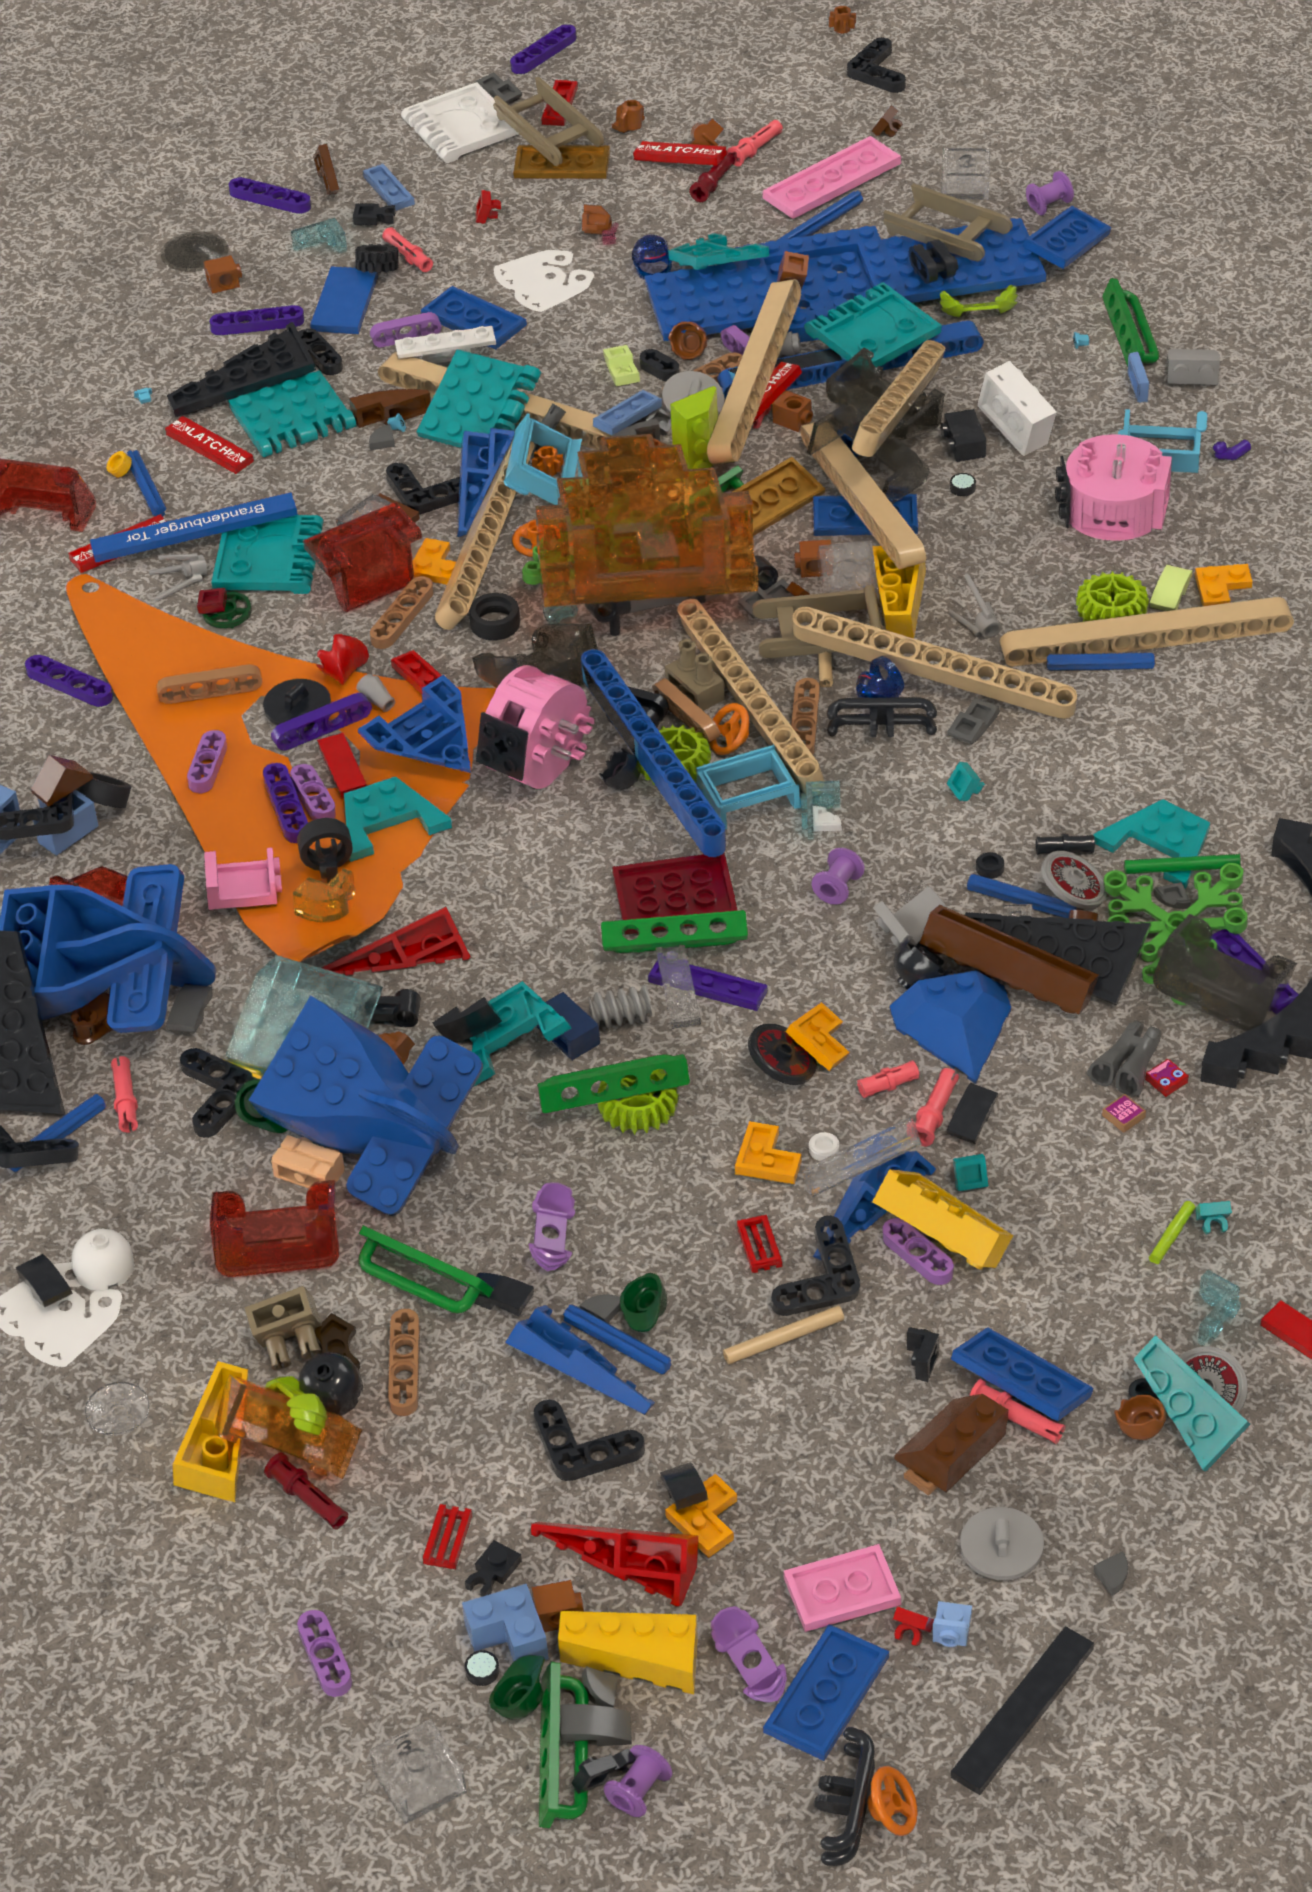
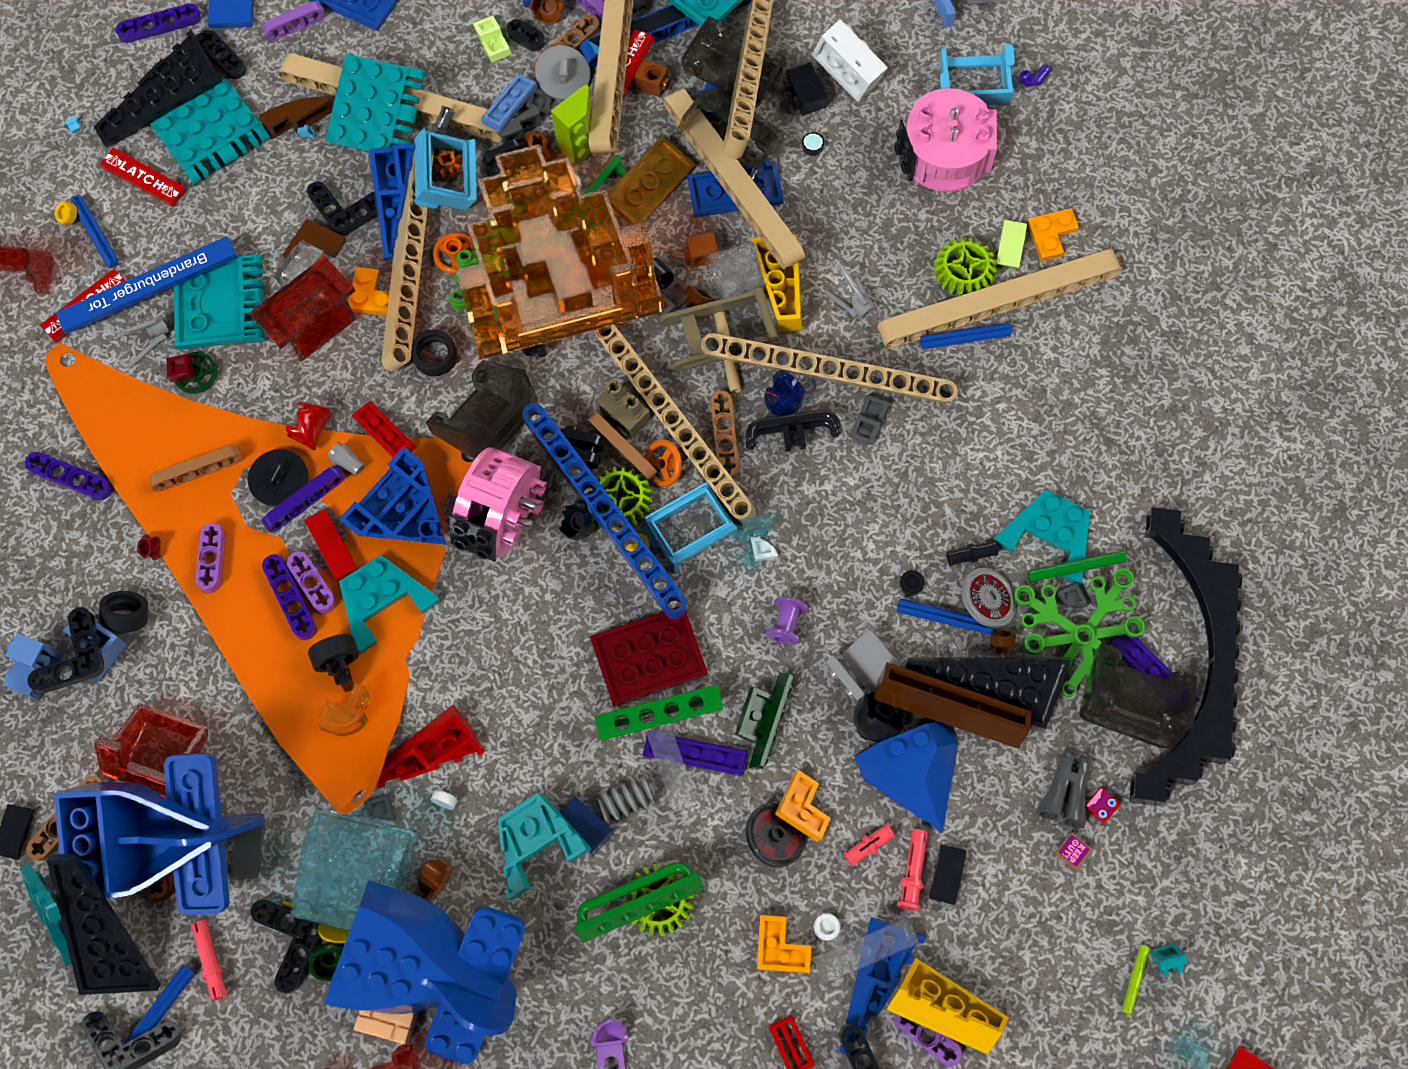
camera: 10 degrees left, 25 degrees up
(59, 779) = (81, 626): reddish brown slope -> none
(142, 745) = (149, 547): none -> dark red plate
(242, 882) = (266, 702): bright pink panel -> none
(382, 438) = (295, 151): dark grey tile -> none
(397, 611) = (350, 356): medium nougat beam -> none
(401, 1008) = (434, 825): black piece -> none
(419, 984) = (444, 799): none -> white tile
(442, 346) = (332, 39): white bracket -> none
(468, 1023) = (495, 842): black slope -> none
(786, 956) = (761, 717): none -> dark green bracket
(964, 782) = (874, 494): teal tile -> none
(970, 1172) = (957, 943): teal tile -> none

